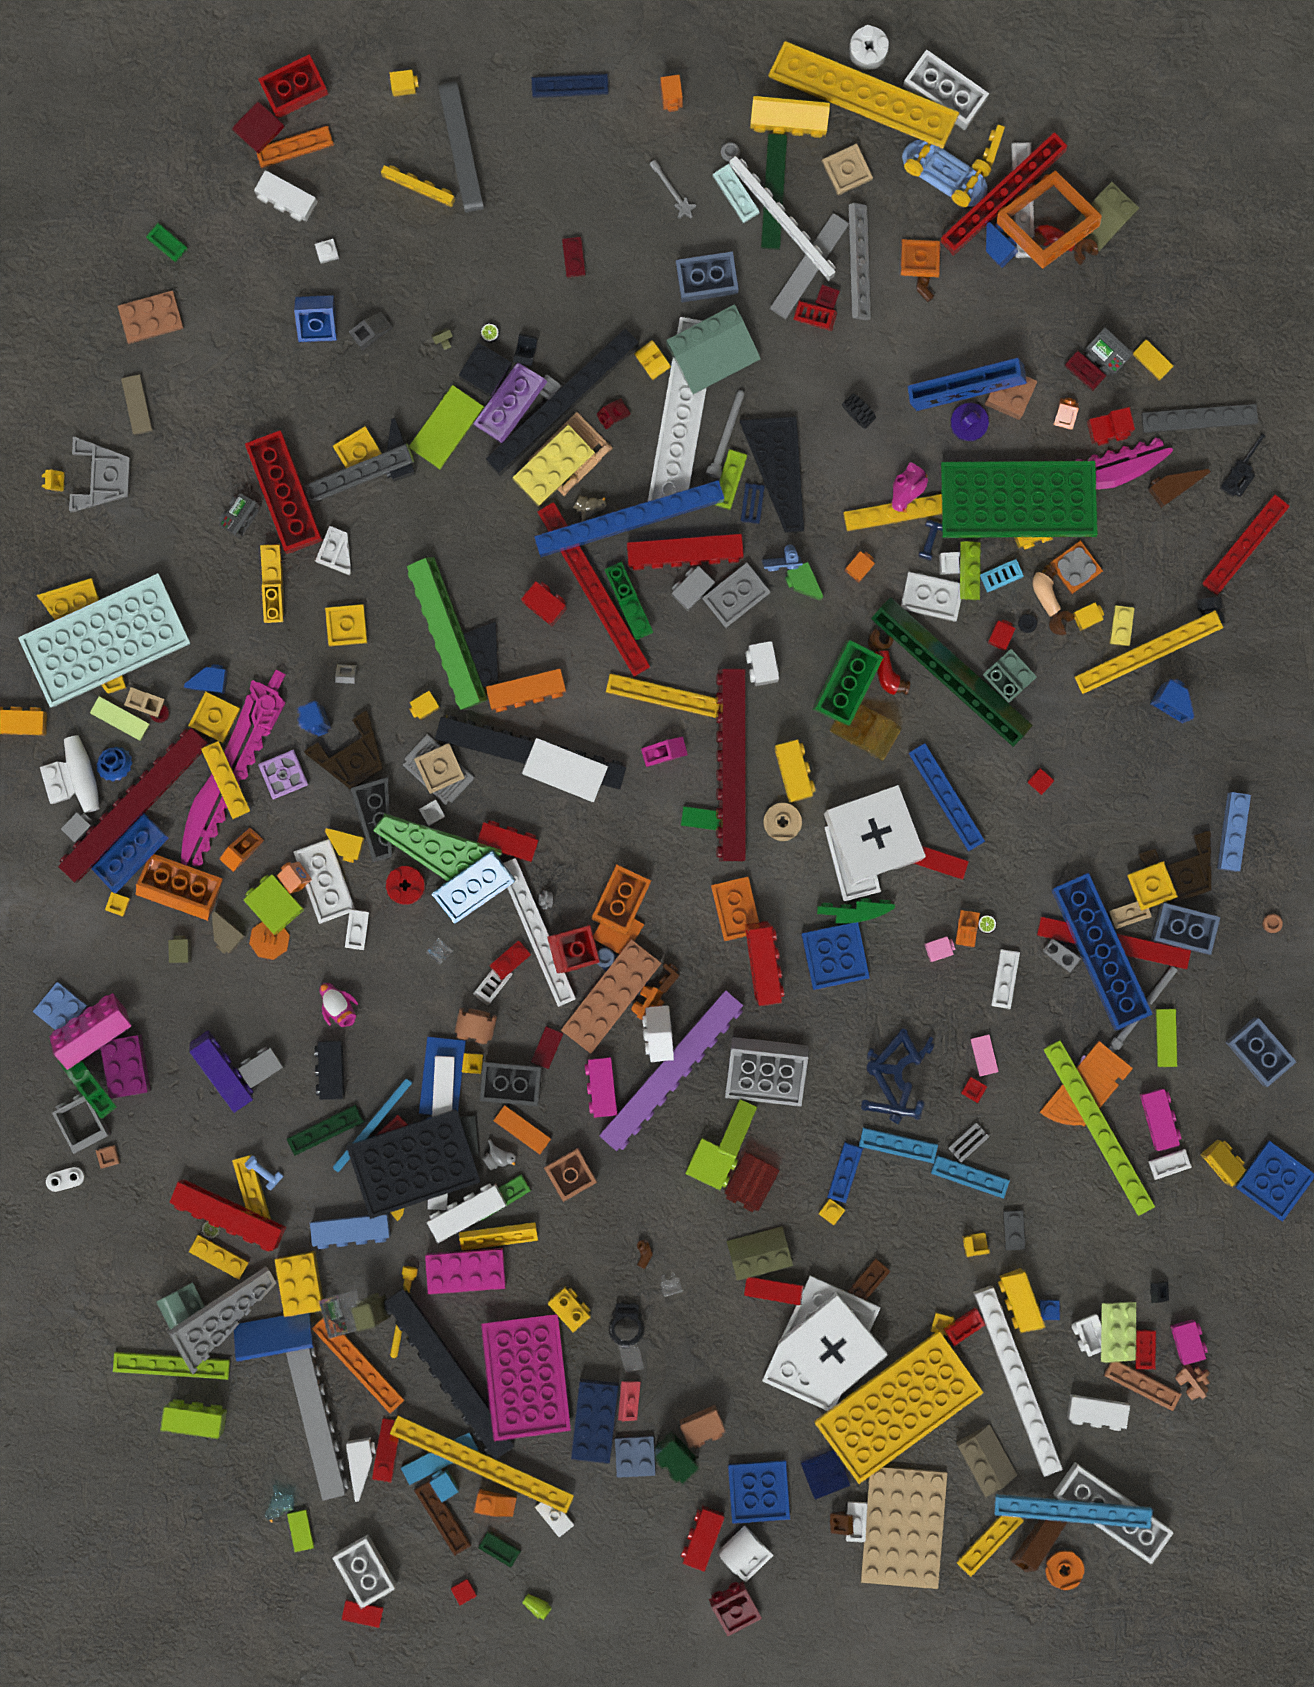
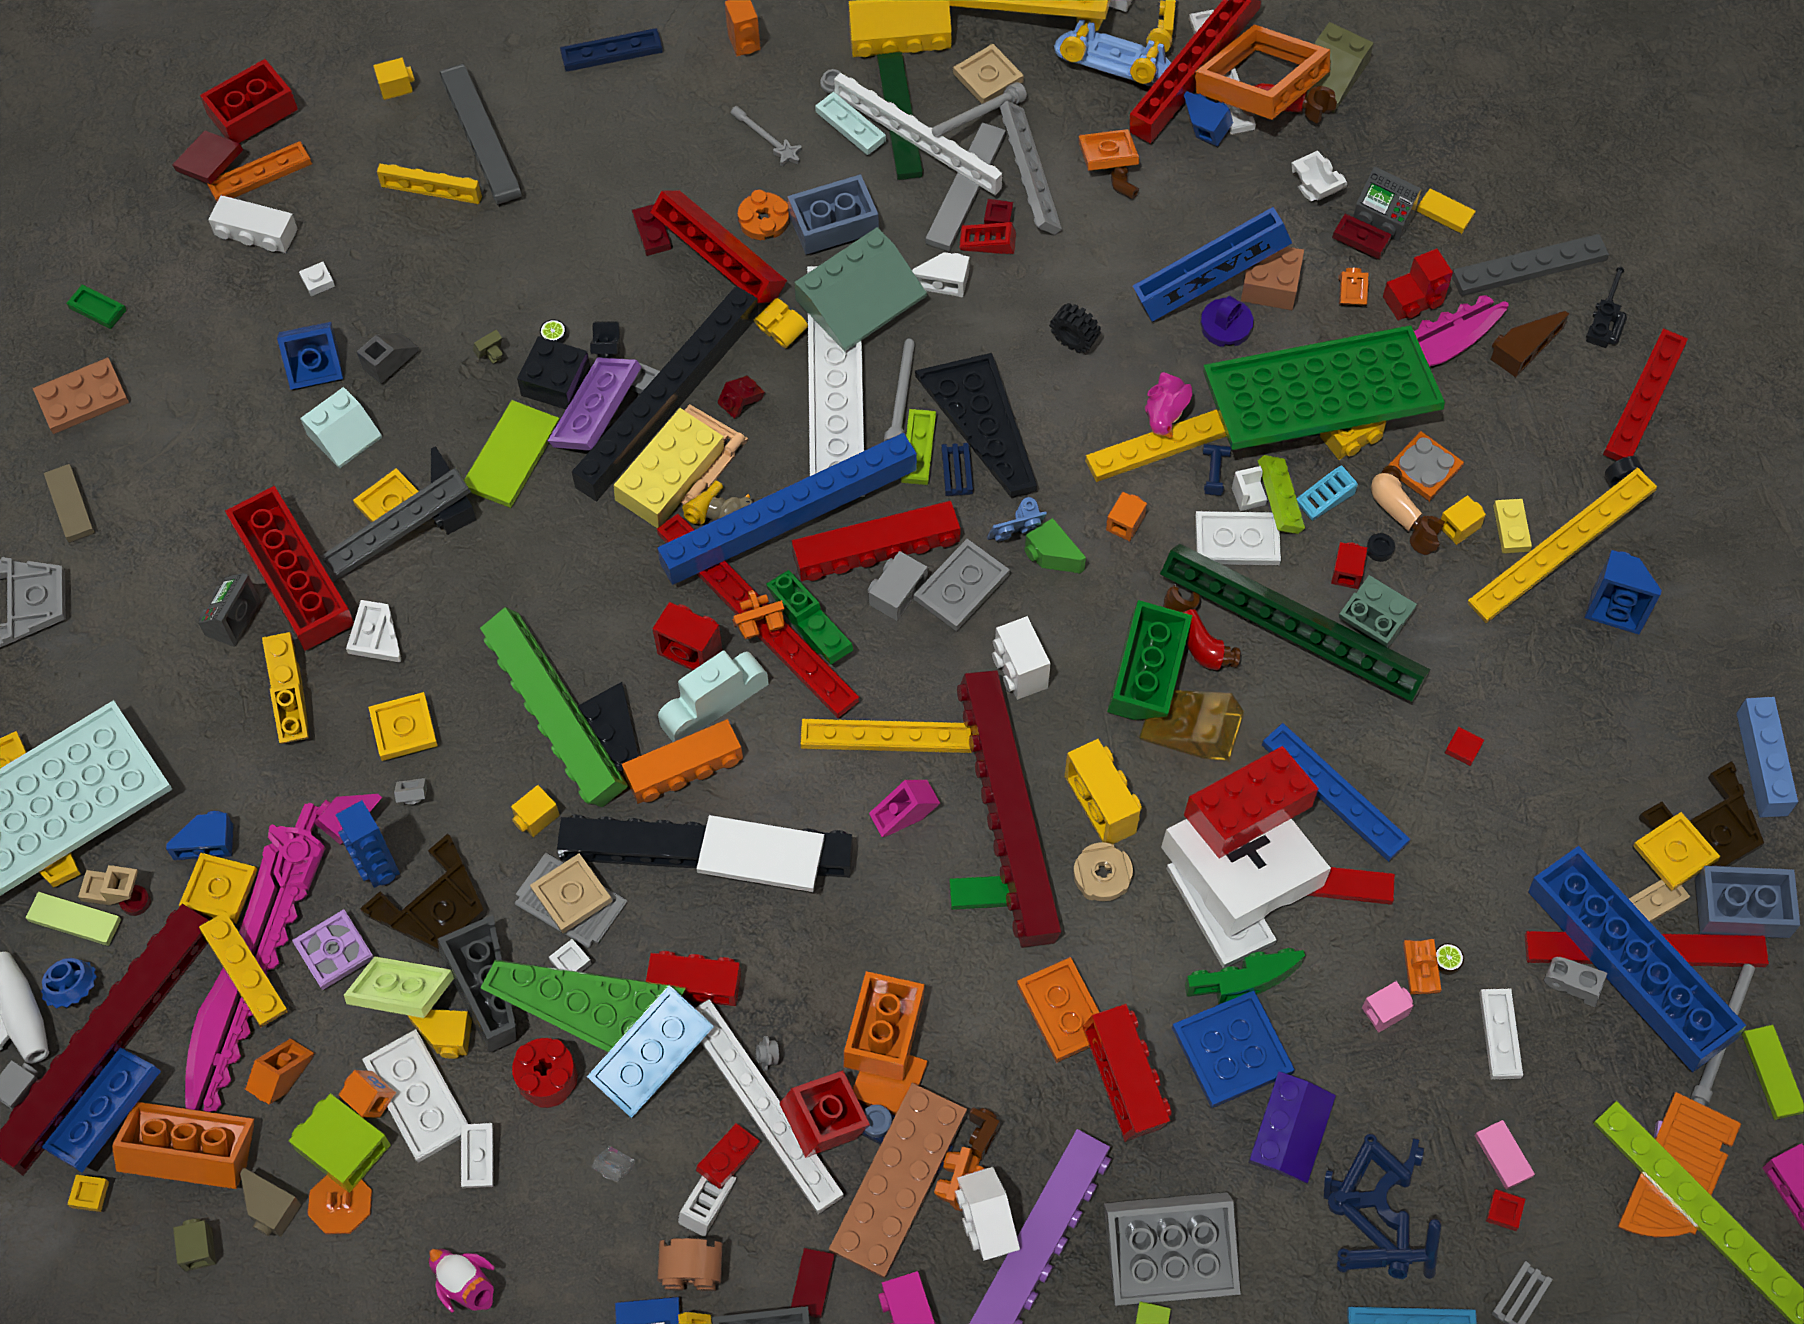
camera: 10 degrees left, 25 degrees down
(302, 683) = (326, 812): none -> dark pink slope
(322, 812) = (399, 987): none -> yellowish green plate
(331, 385) = (340, 427): none -> light aqua slope
(553, 647) = (711, 693): none -> light aqua brick
(569, 498) = (696, 509): none -> yellow cone
(593, 595) = (746, 620): none -> orange hips
(618, 287) = (718, 246): none -> red brick
(657, 273) = (759, 203): none -> orange plate
(777, 342) = (944, 274): none -> white slope
(857, 1015) = (1292, 1127): none -> dark purple slope
(861, 193) = (1013, 93): none -> light grey piece
(885, 804) = (1250, 801): none -> red brick
(1066, 314) = (1317, 176): none -> white cylinder

